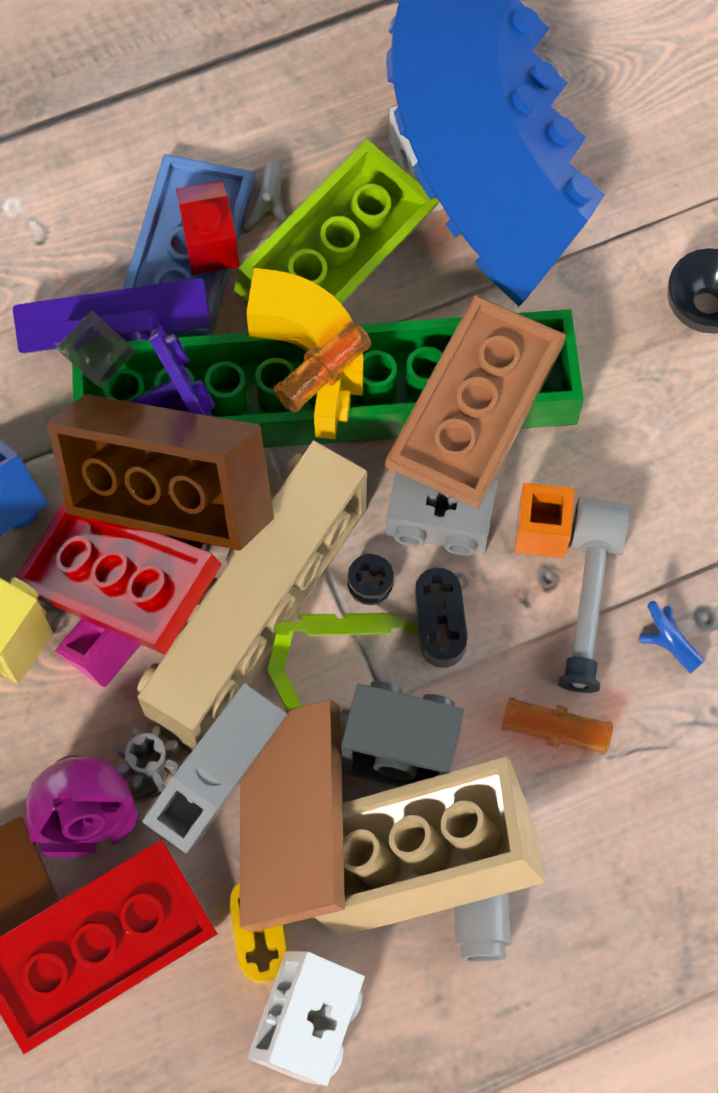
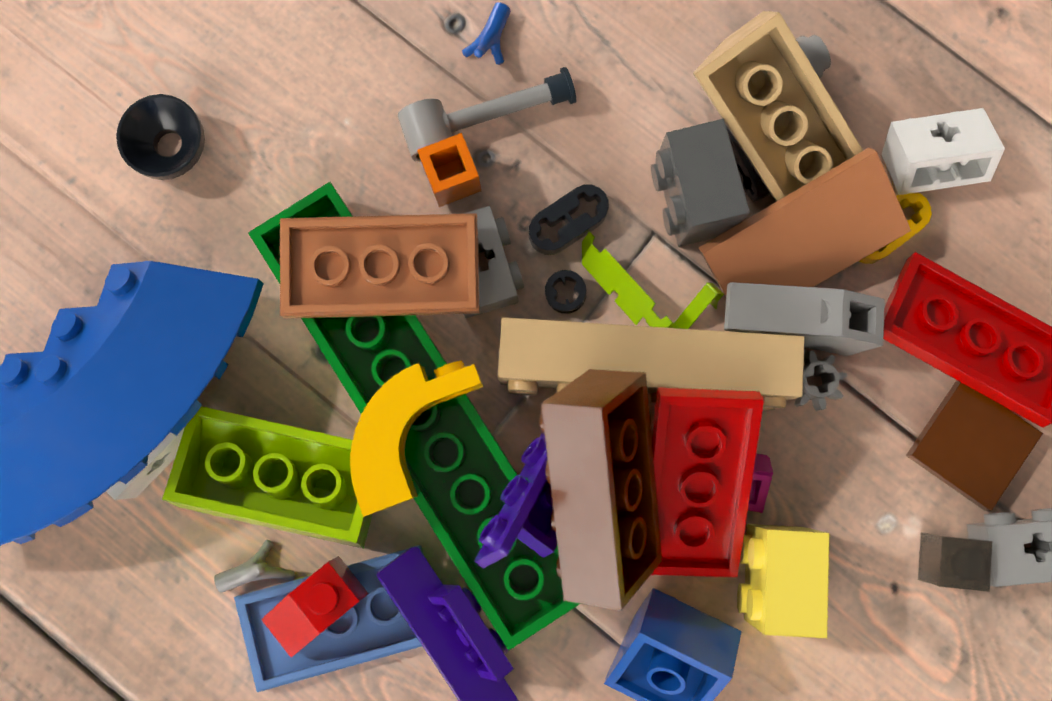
camera: 115 degrees left, 15 degrees up
(78, 805) = (886, 412): magenta cylinder -> none
(96, 349) = (516, 614): clear smoke brick -> none
(322, 366) = (436, 394): clear orange pin -> none
(557, 726) = (611, 85): clear orange pin -> none

